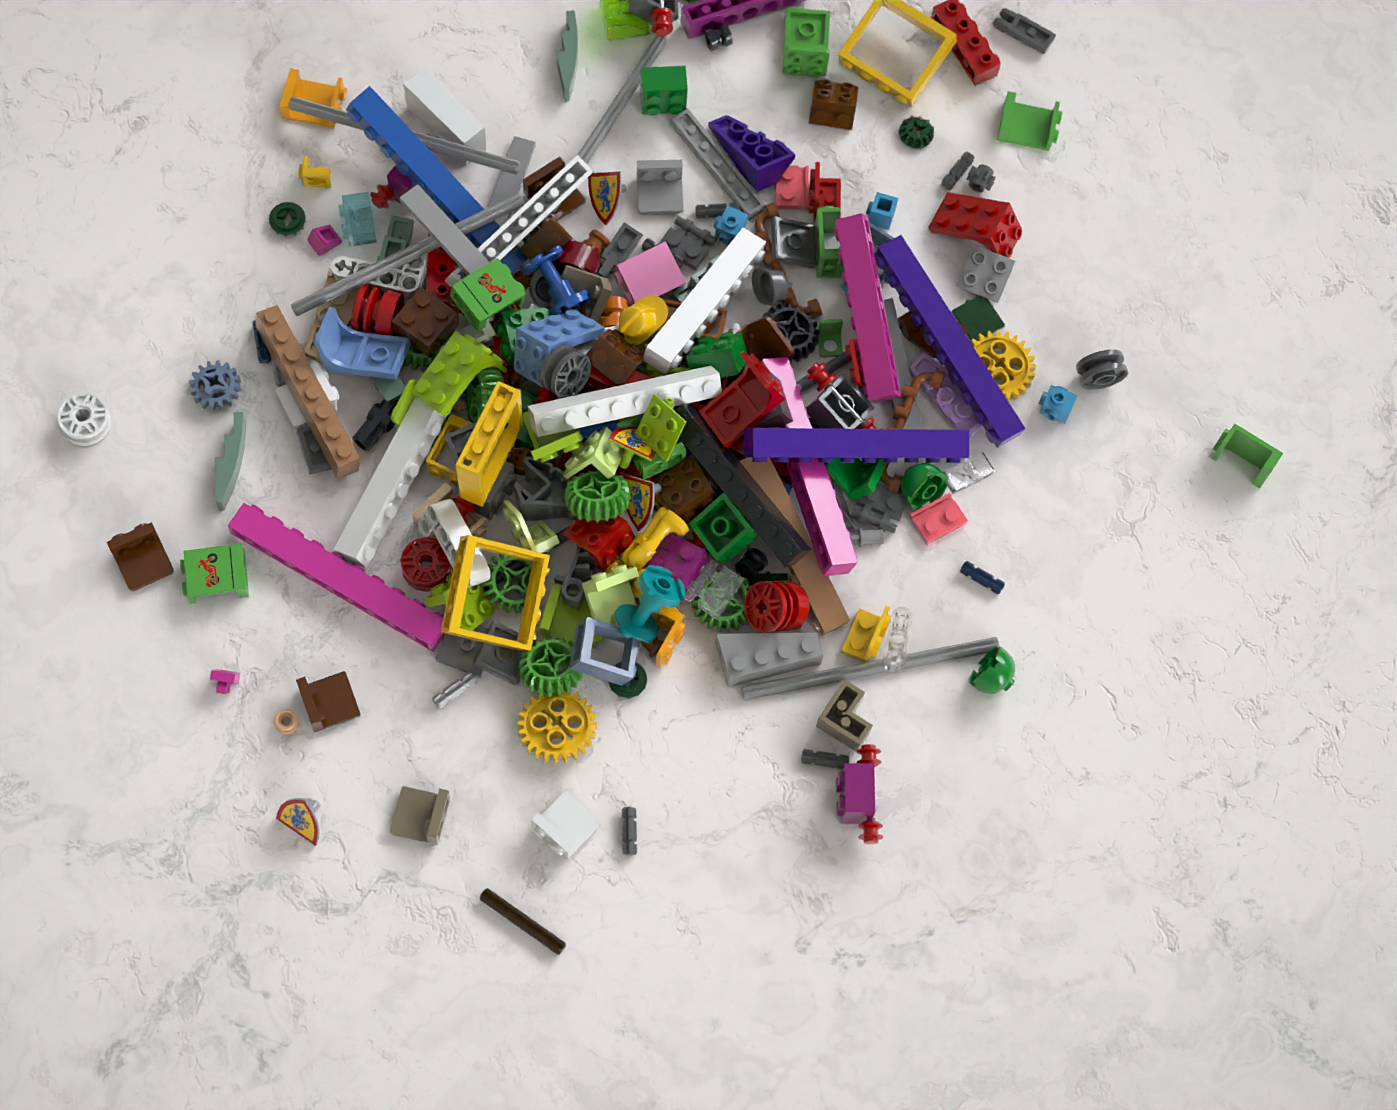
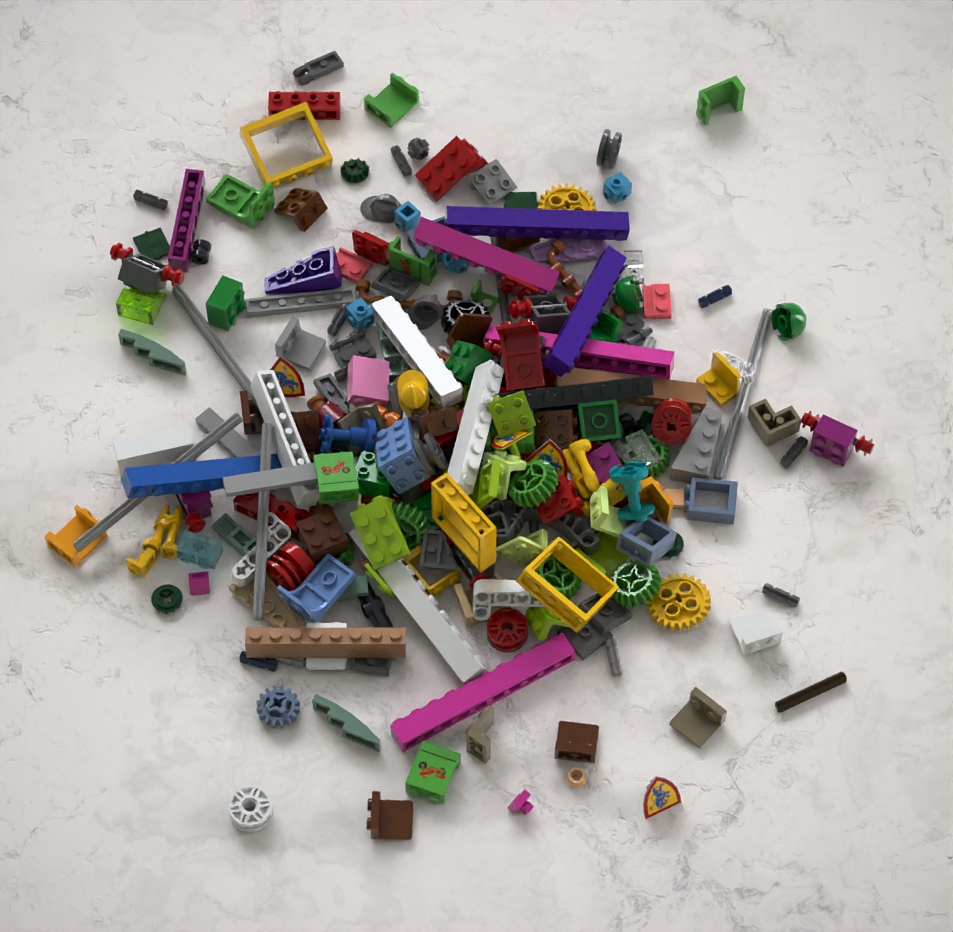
camera: 55 degrees left, 10 degrees down
(274, 591) = (476, 739): none -> dark tan bracket
(375, 172) = (163, 524): none -> yellow piece
(690, 658) = (677, 497): none -> light nougat tile
(716, 721) = (709, 514): none -> sand blue window
(885, 178) = (380, 208): none -> dark grey piece

